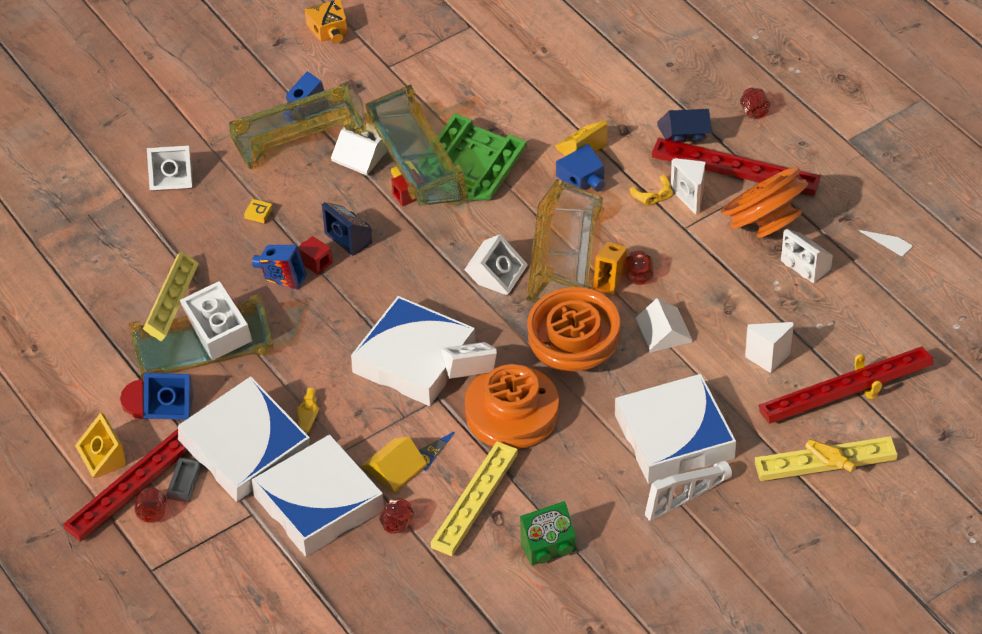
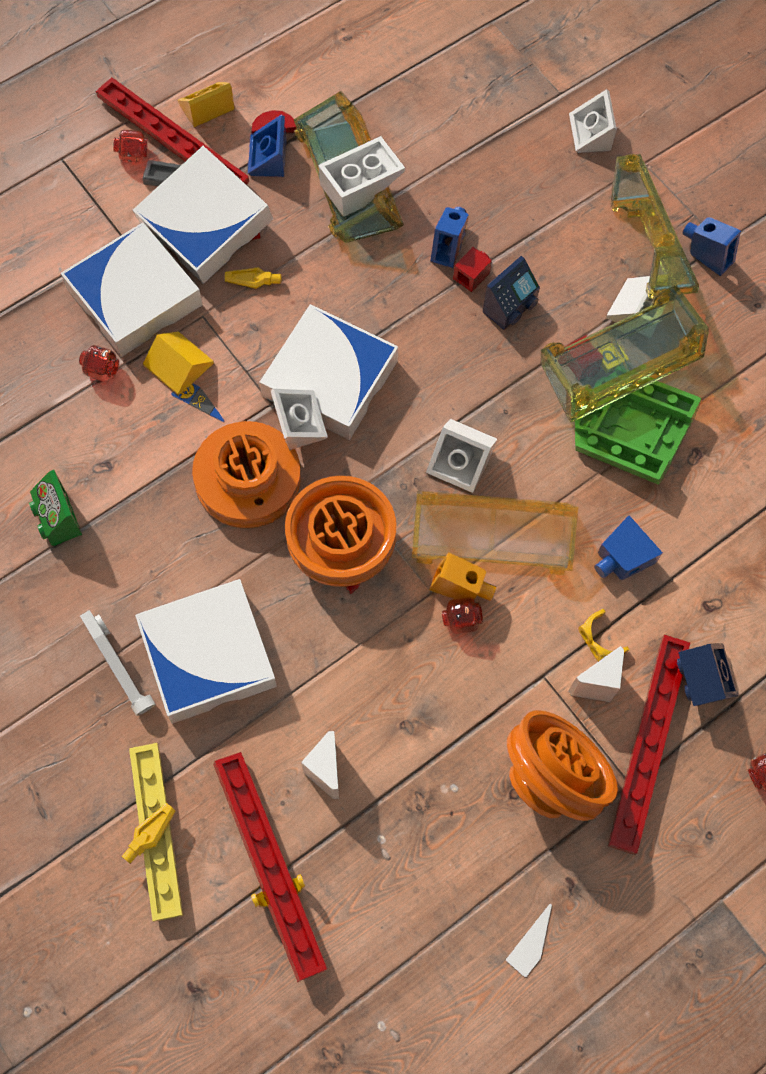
camera: 85 degrees right, 20 degrees up
(170, 296) = (395, 132): light yellow plate -> none
(258, 211) = (542, 214): yellow tile -> none
(474, 498) = (122, 440): light yellow plate -> none
(593, 134) = (680, 552): yellow slope -> none
(662, 326) = (372, 646): white slope -> none
(805, 256) = (487, 824): white slope -> none

